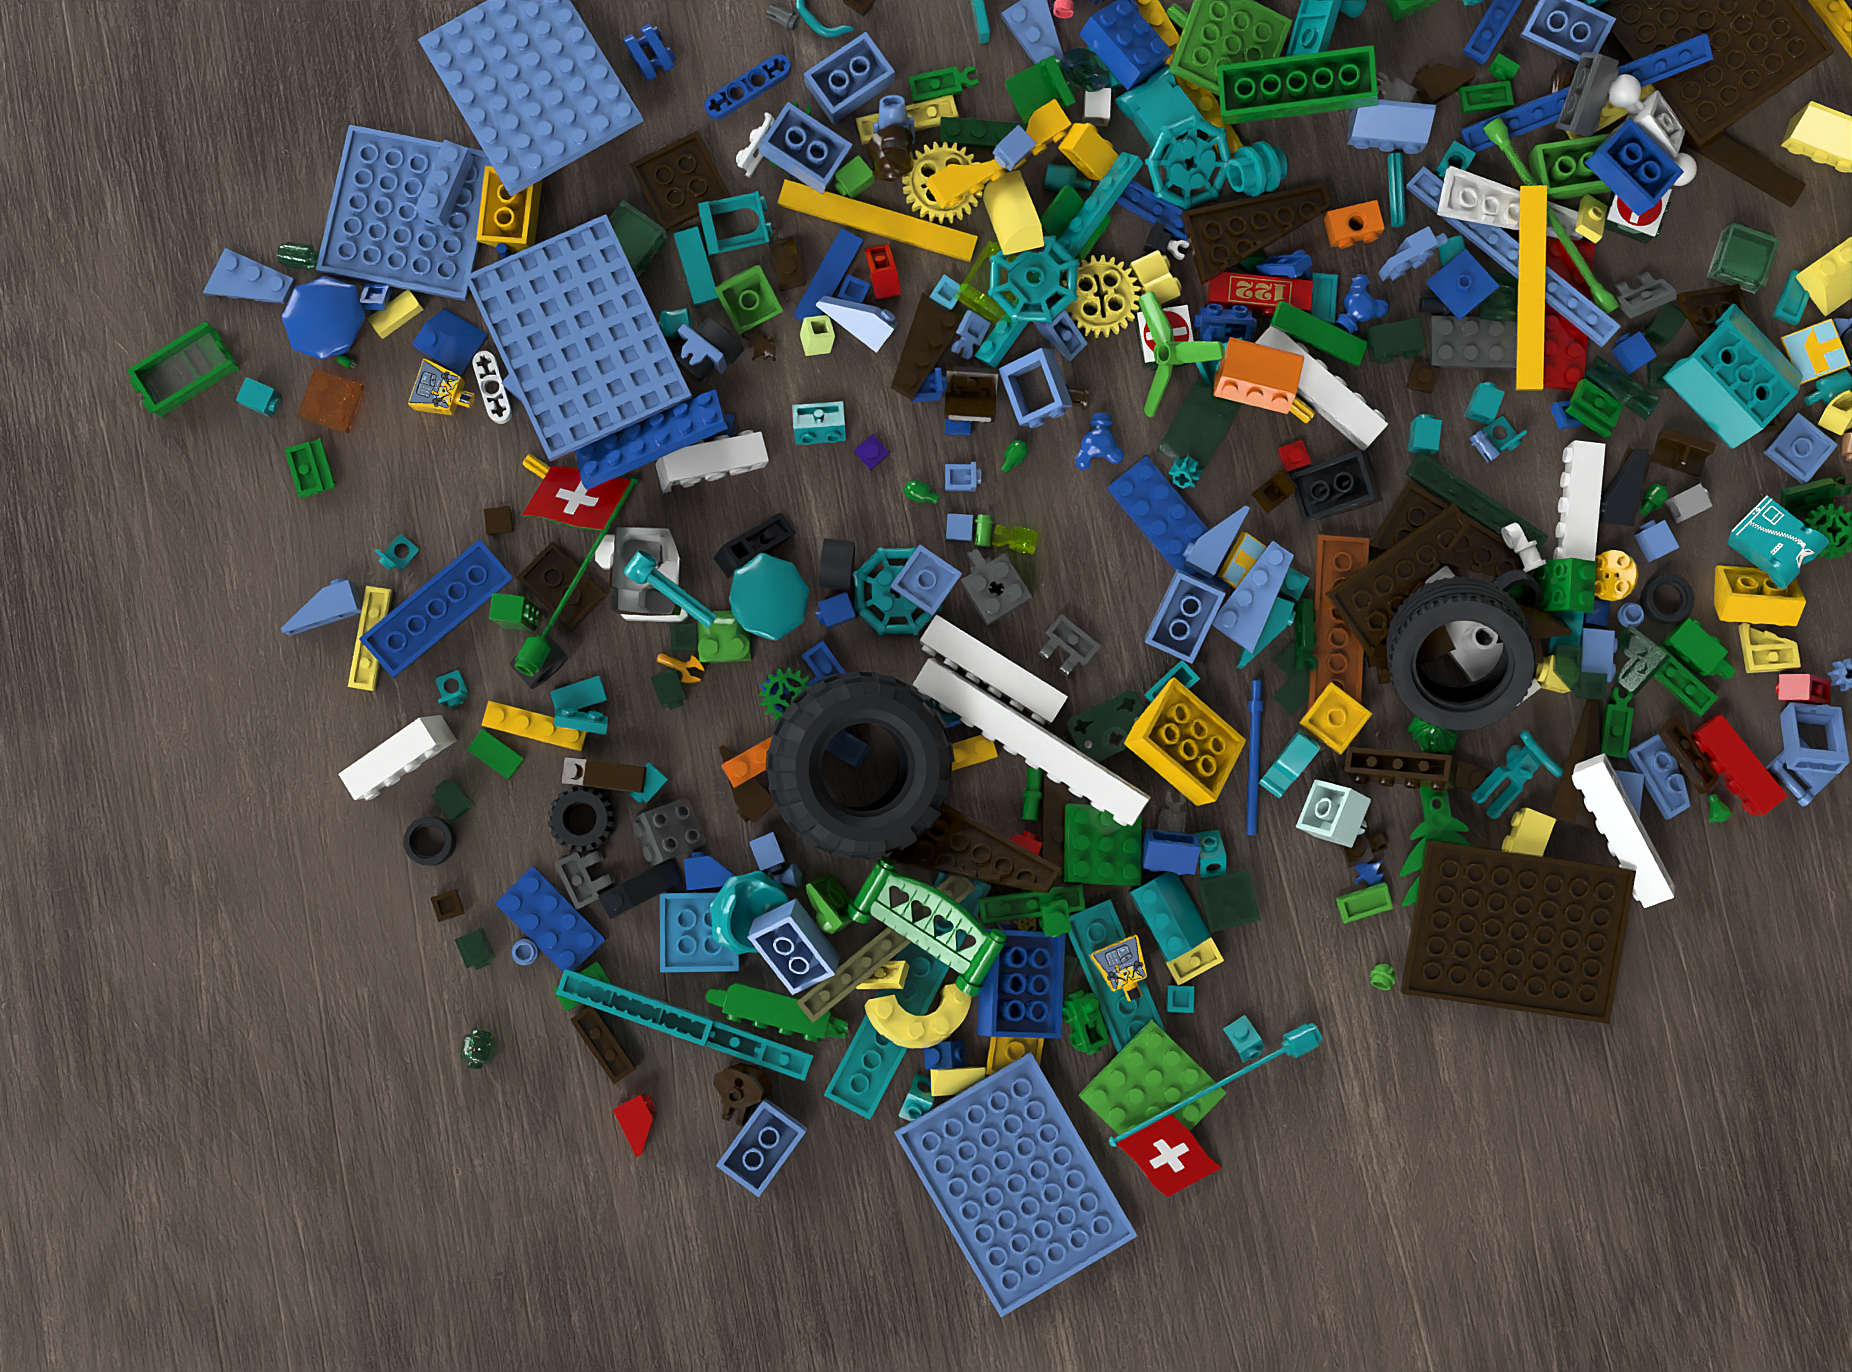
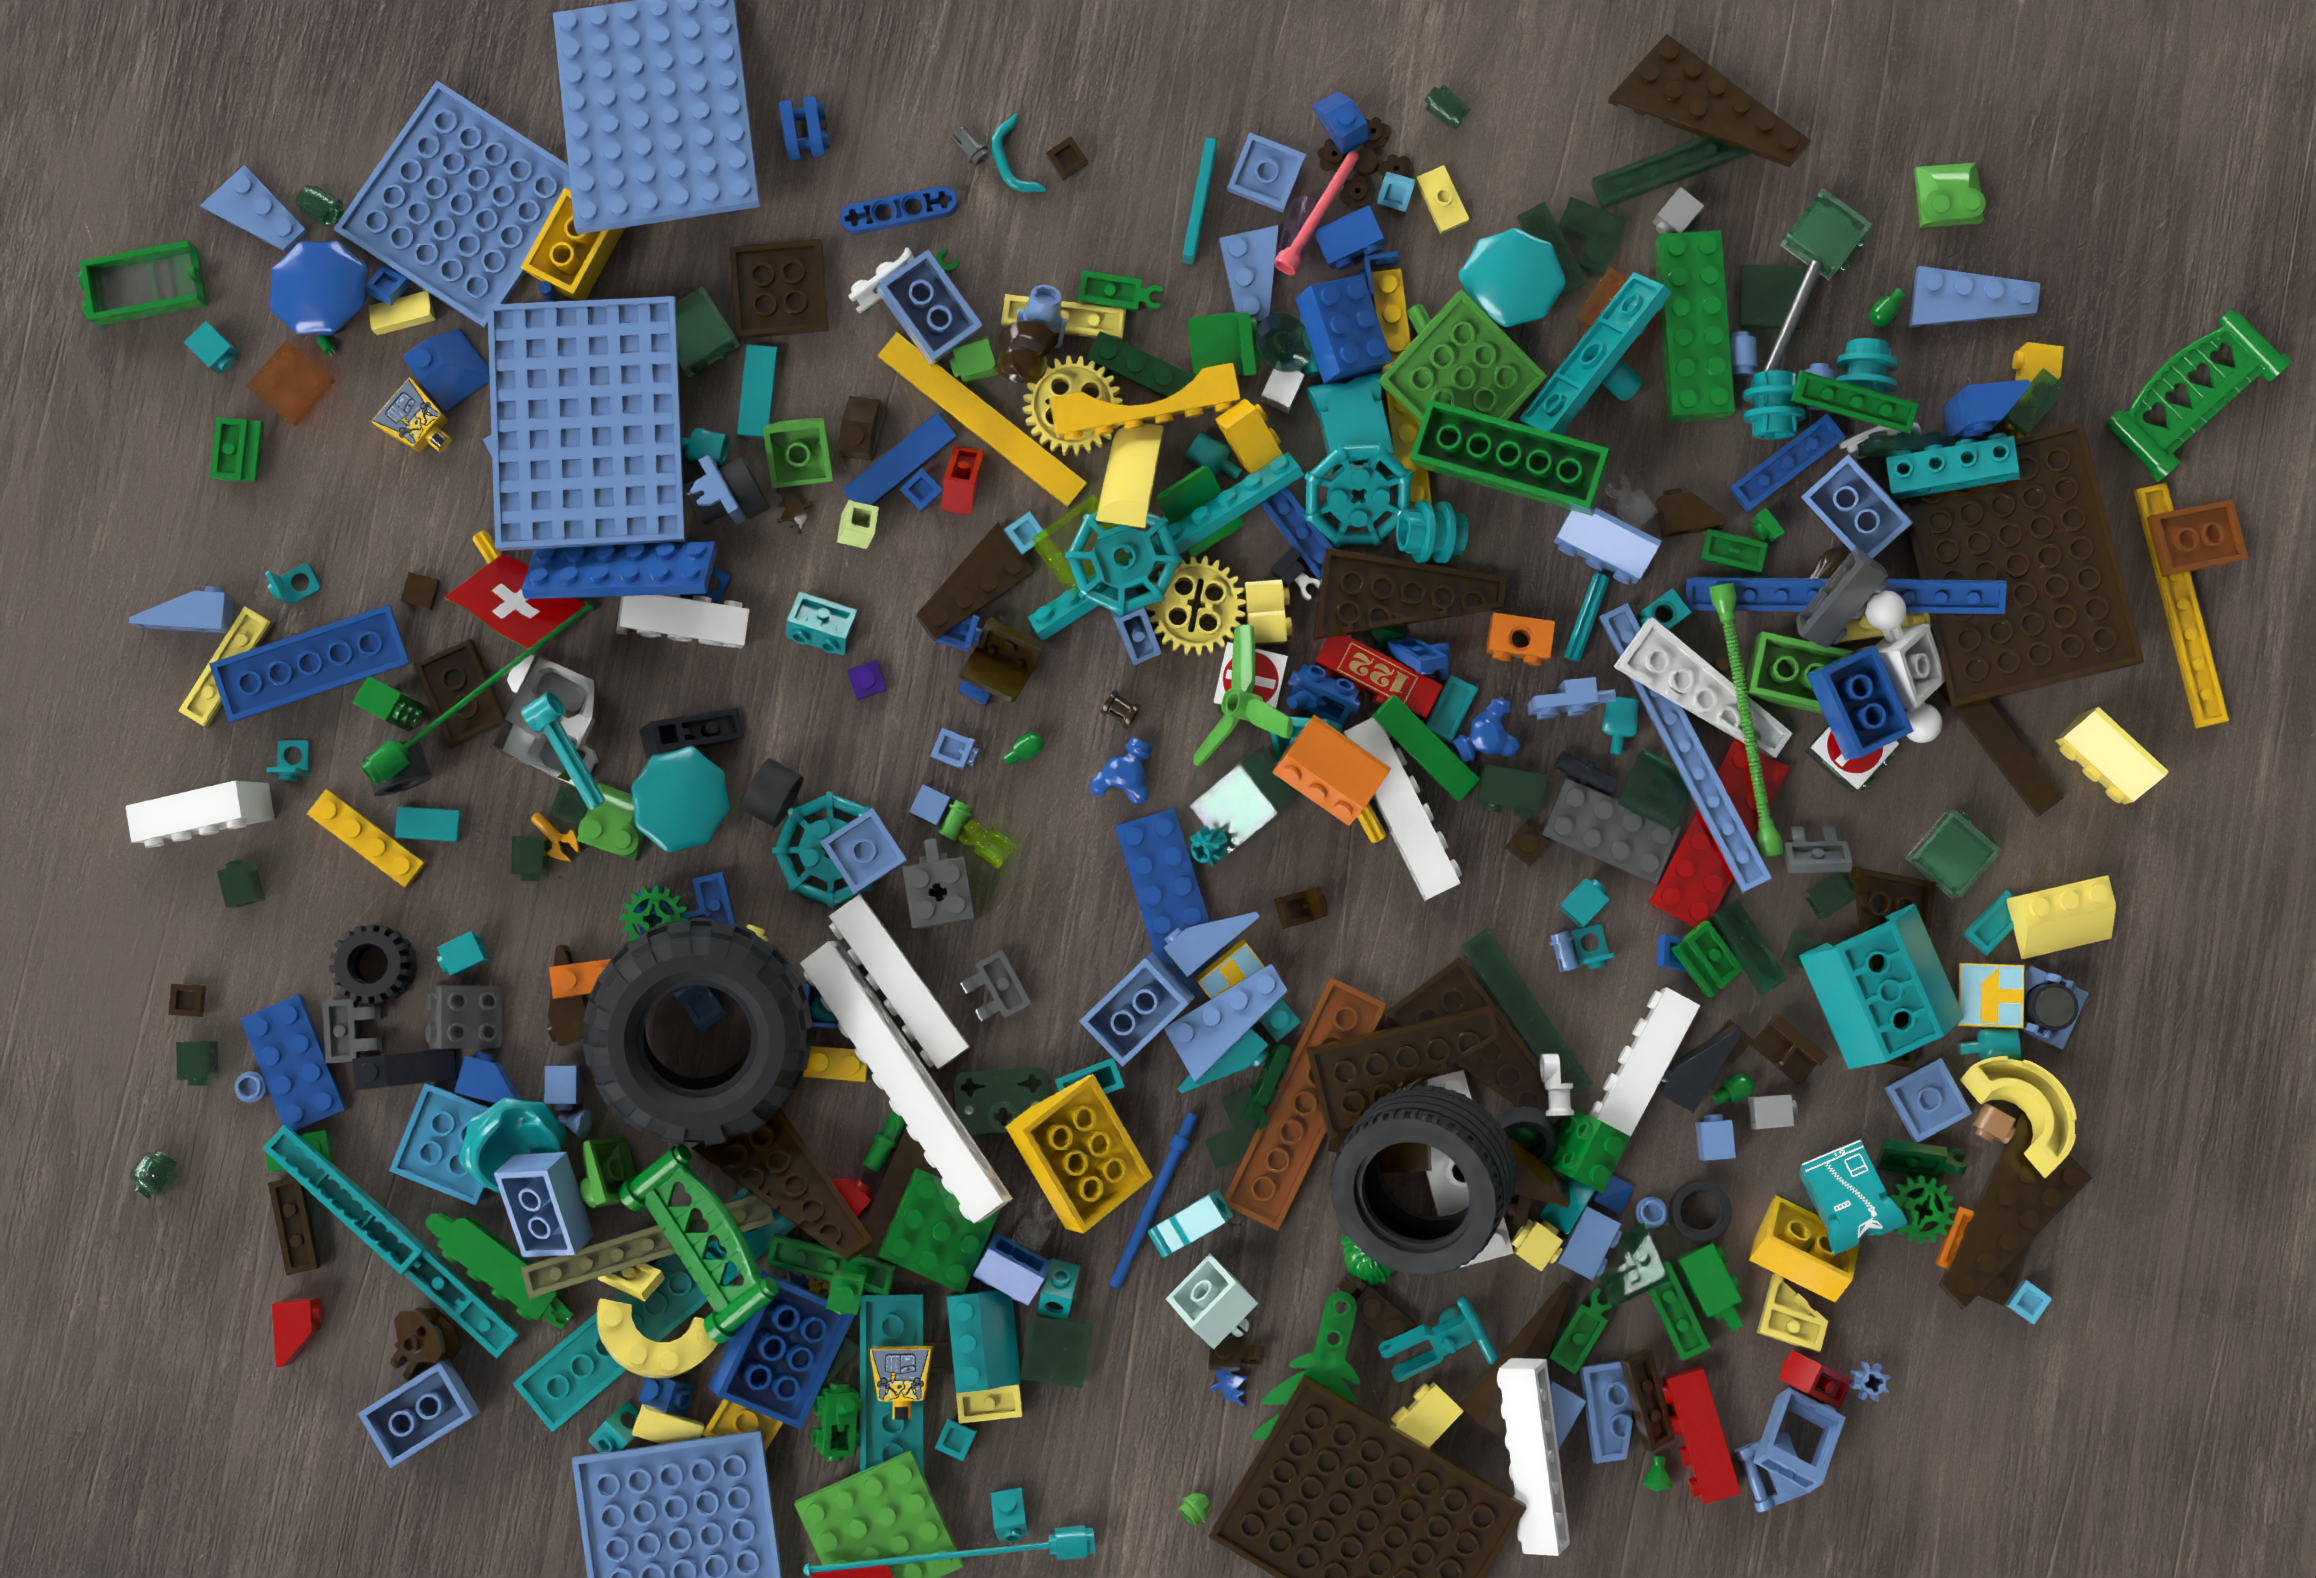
camera: 30 degrees right, 0 degrees up
(409, 841) = (172, 920): black tyre -> none
(444, 183) = (512, 189): medium blue brick -> none
(480, 371) = (465, 460): white beam -> none
(495, 754) = (309, 852): green tile -> none
(591, 722) = (410, 850): teal plate -> none
(604, 775) = (414, 925): dark brown slope -> none
(747, 201) = (840, 385): teal panel -> none
(835, 611) = (750, 844): blue brick -> none
(849, 78) = (1014, 246): medium blue brick -> none
(864, 321) = (916, 529): slope -> none
(919, 492) = (901, 747): green cylinder -> none
(972, 331) = (1034, 587): medium blue plate -> none
(1013, 148) = (1158, 403): medium blue brick -> none
(1055, 380) = (1100, 682): medium blue window -> none
(1294, 456) = (1342, 875): red plate -> none
(1335, 718) = (1261, 1194): yellow tile -> none
(1336, 486) = (1374, 930): black slope -> none
(1364, 903) = (1209, 1416): bright green tile -> none
(1401, 767) = (1308, 1281): dark brown brick -> none
(1424, 434) = (1500, 911): teal brick -> none
(1462, 284) = (1612, 757): blue plate -> none
(1531, 288) = (1688, 793): yellow tile -> none
(1568, 665) = (1548, 1246): clear green tile -> none
(1591, 218) = (1794, 739): light yellow plate -> none
(1614, 587) = (1641, 1172): yellow plate -> none
(1633, 352) = (1779, 911): blue brick -> none

